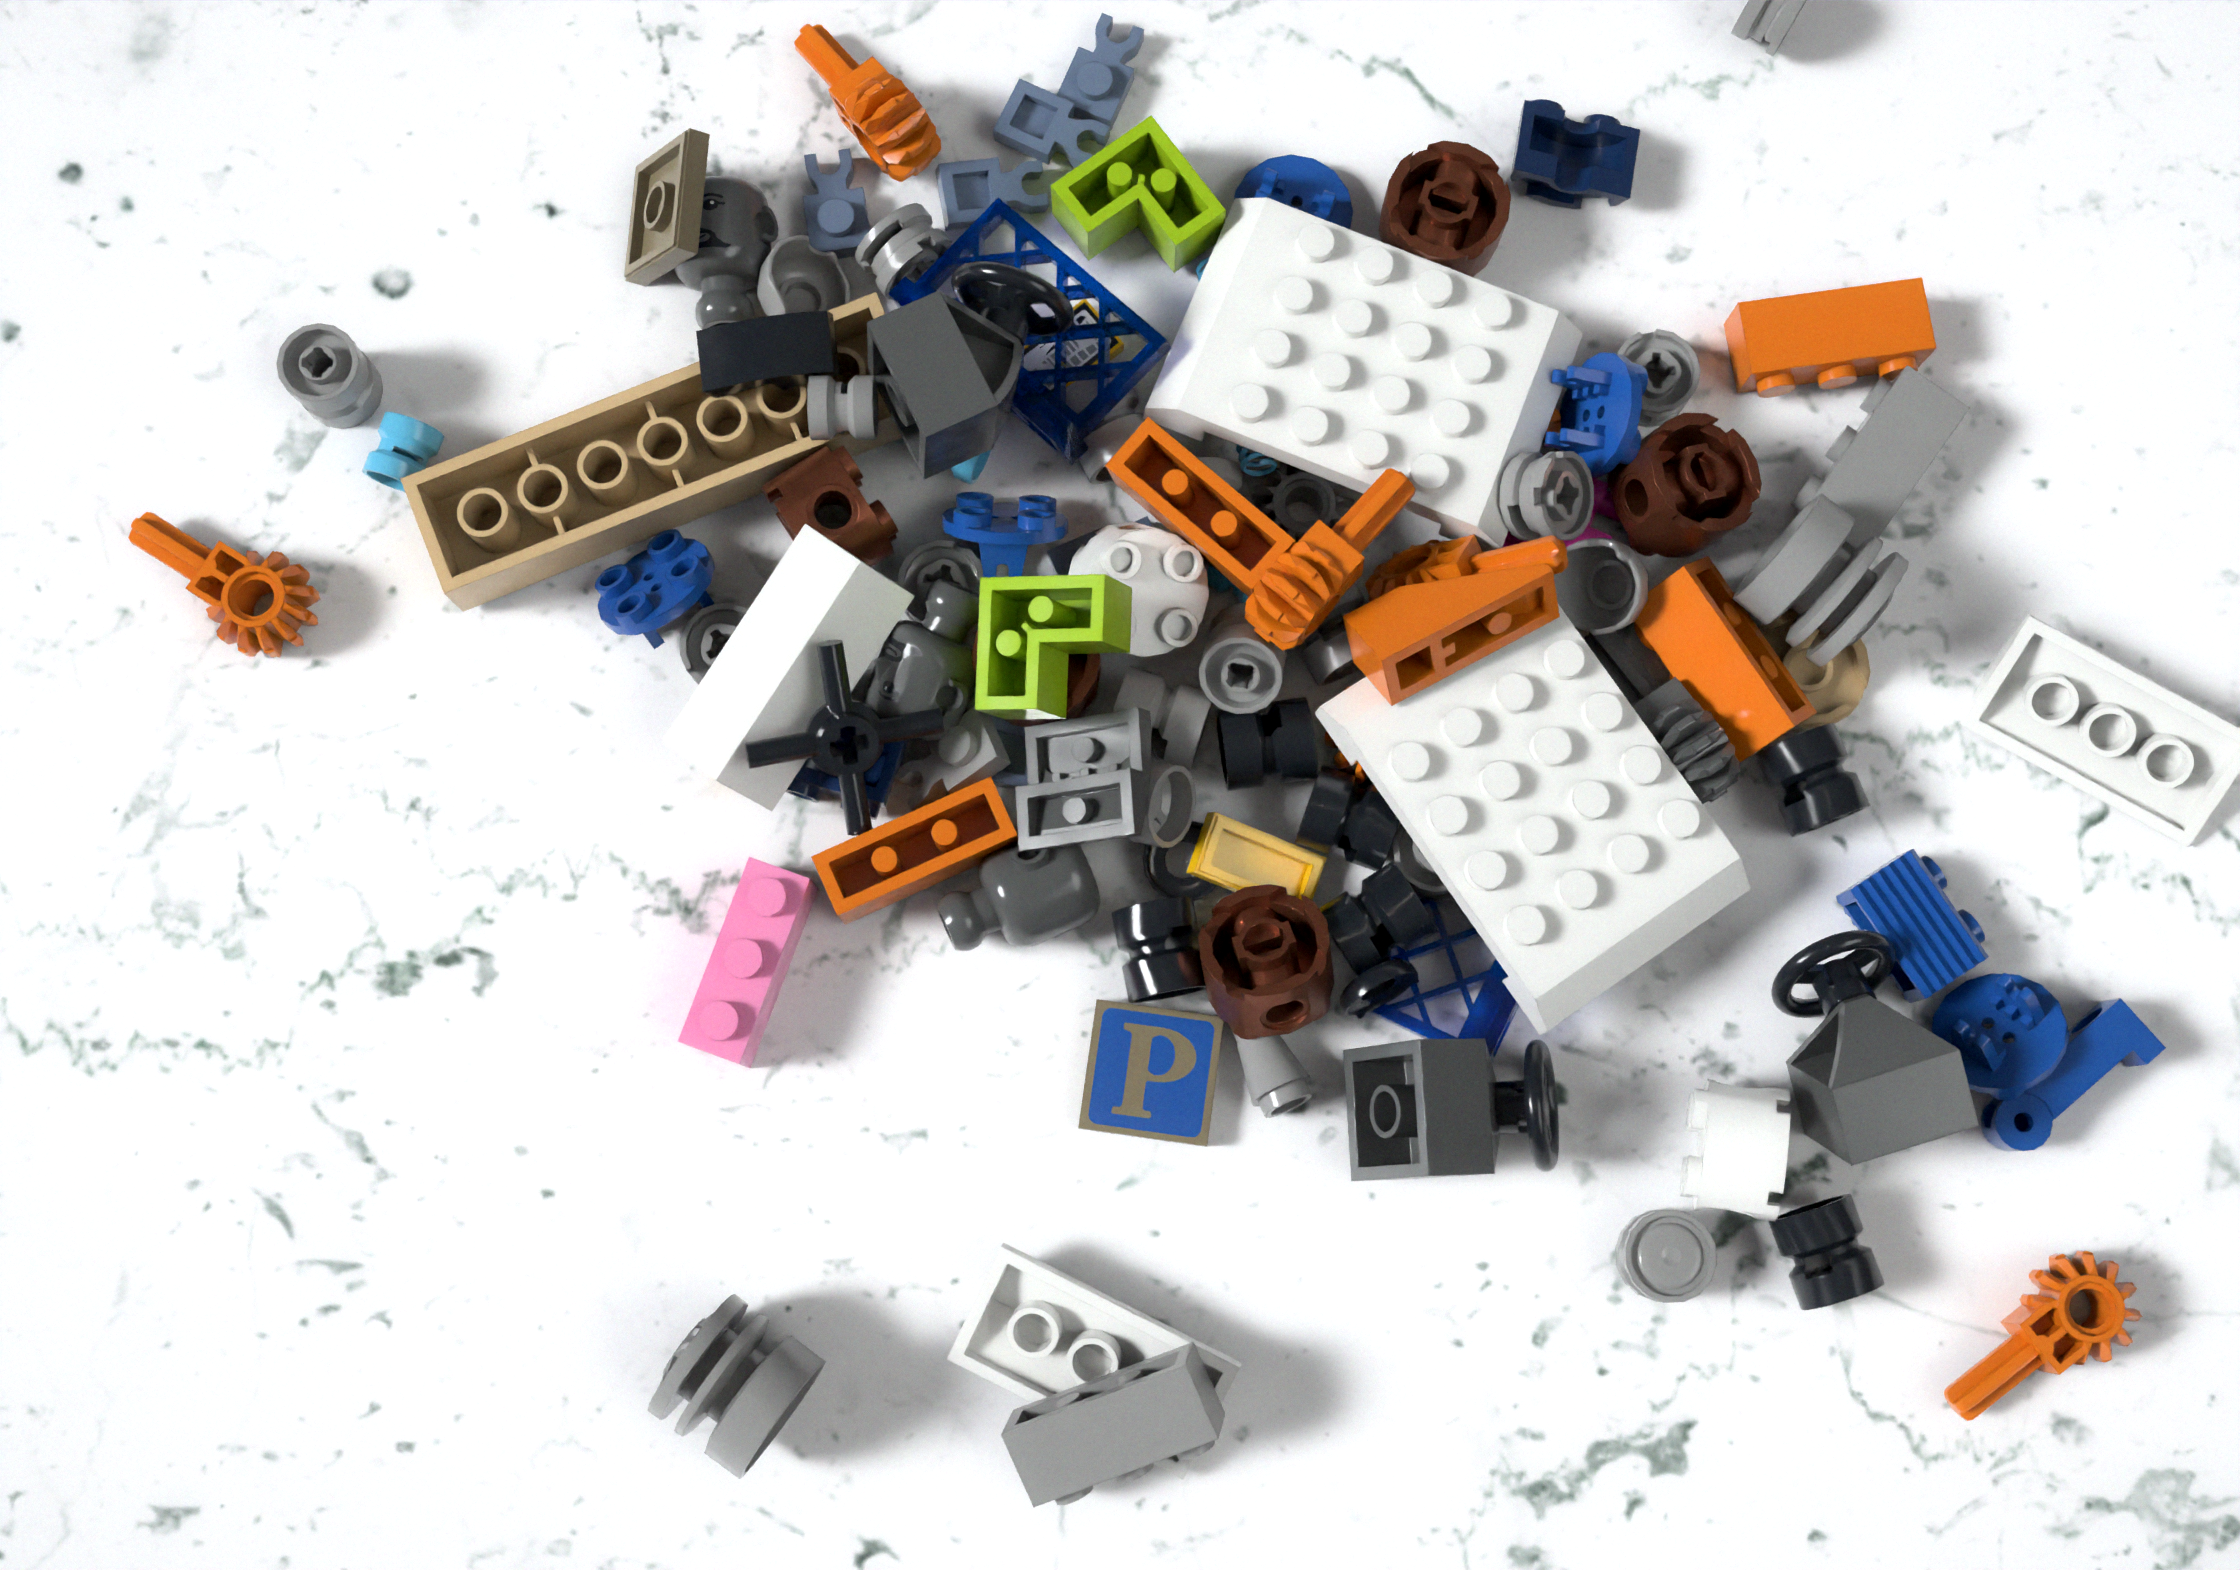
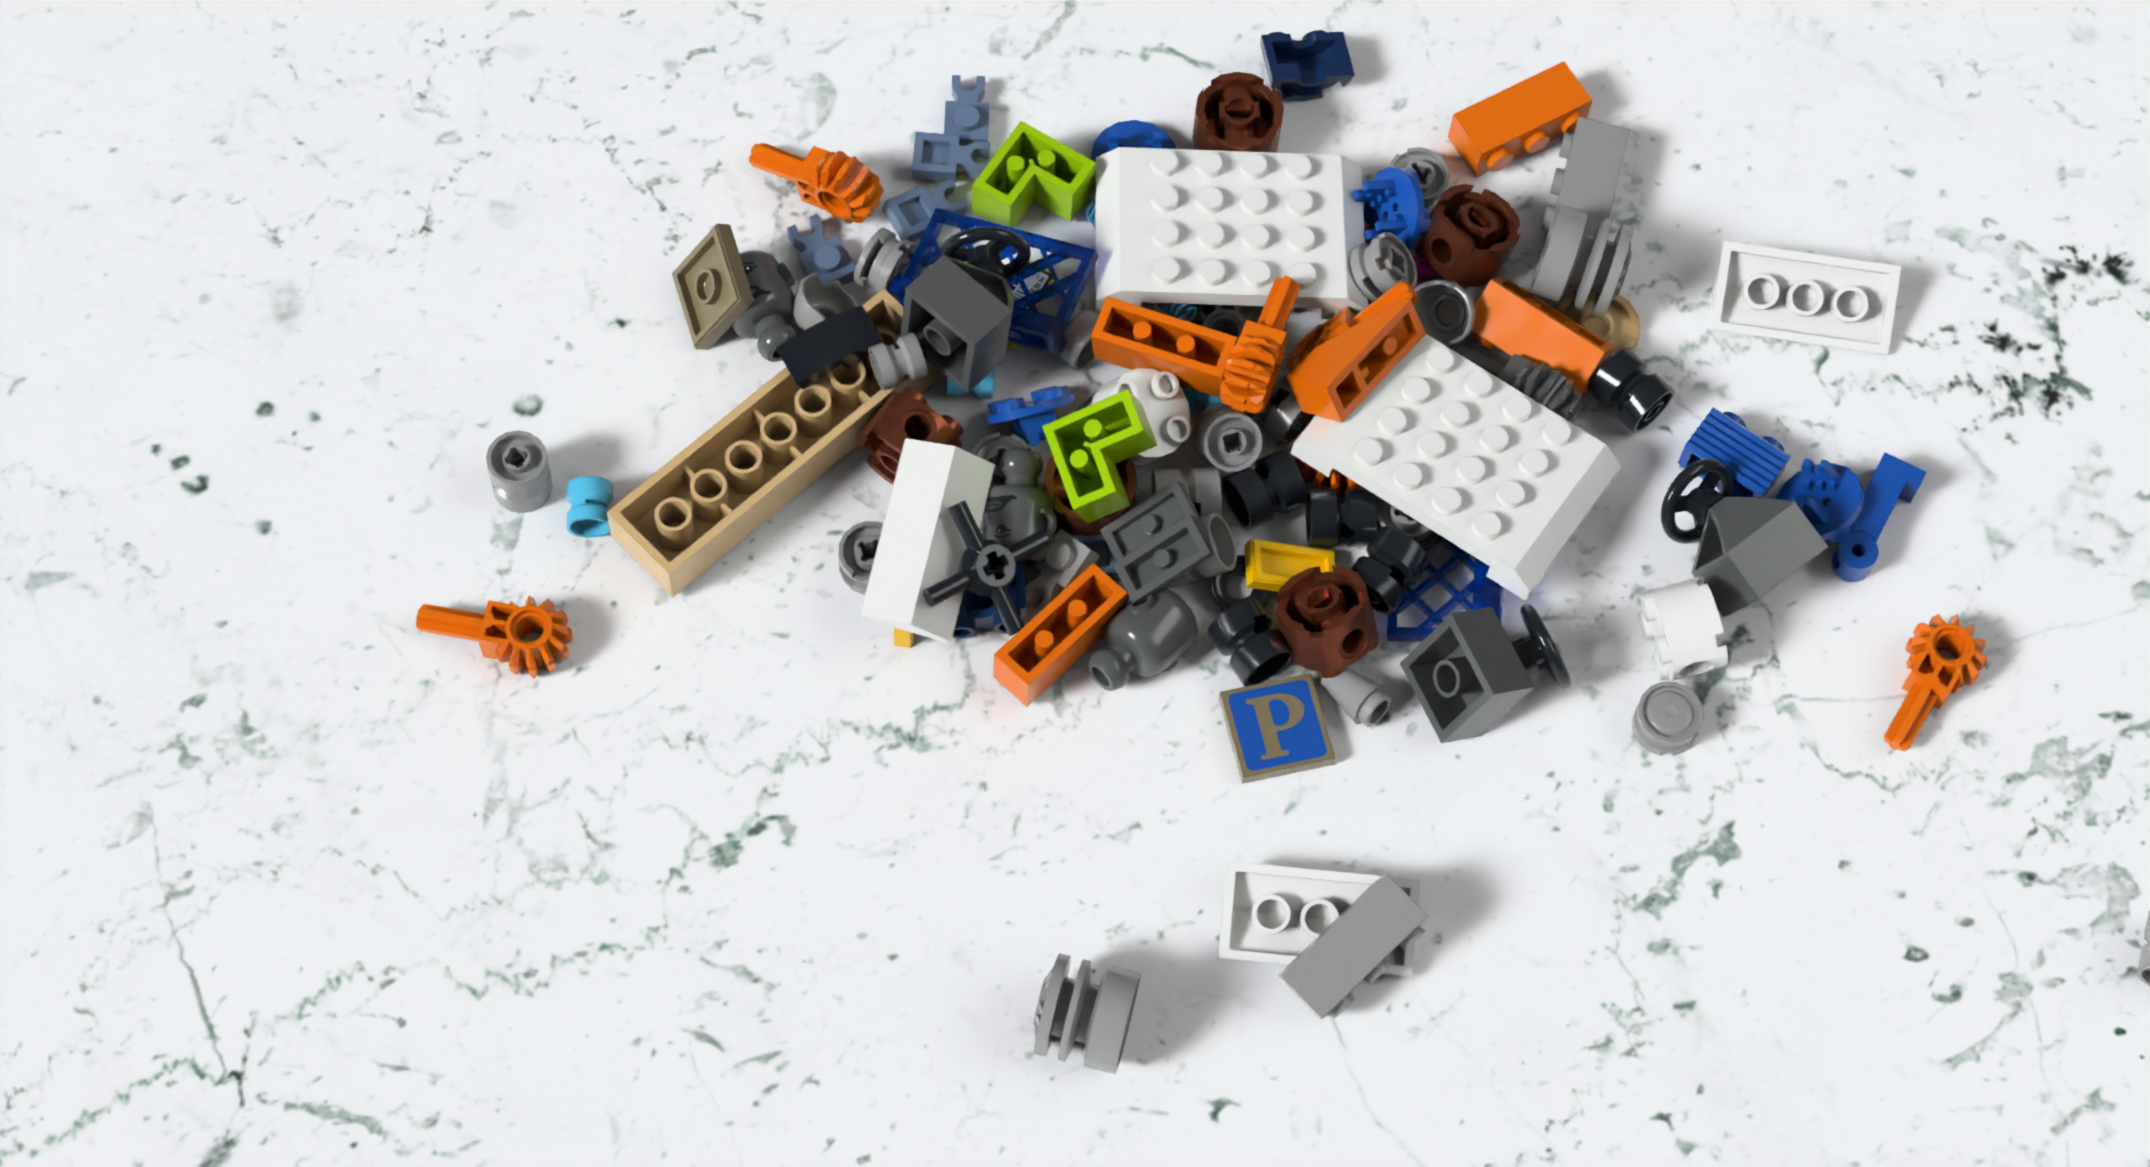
camera: 25 degrees left, 15 degrees down
(655, 586) = (806, 530): blue plate -> none
(749, 962) = (975, 748): bright pink brick -> none
(1377, 987) = (1406, 610): black piece -> none
(1823, 1227) = (1757, 663): black wheel -> none

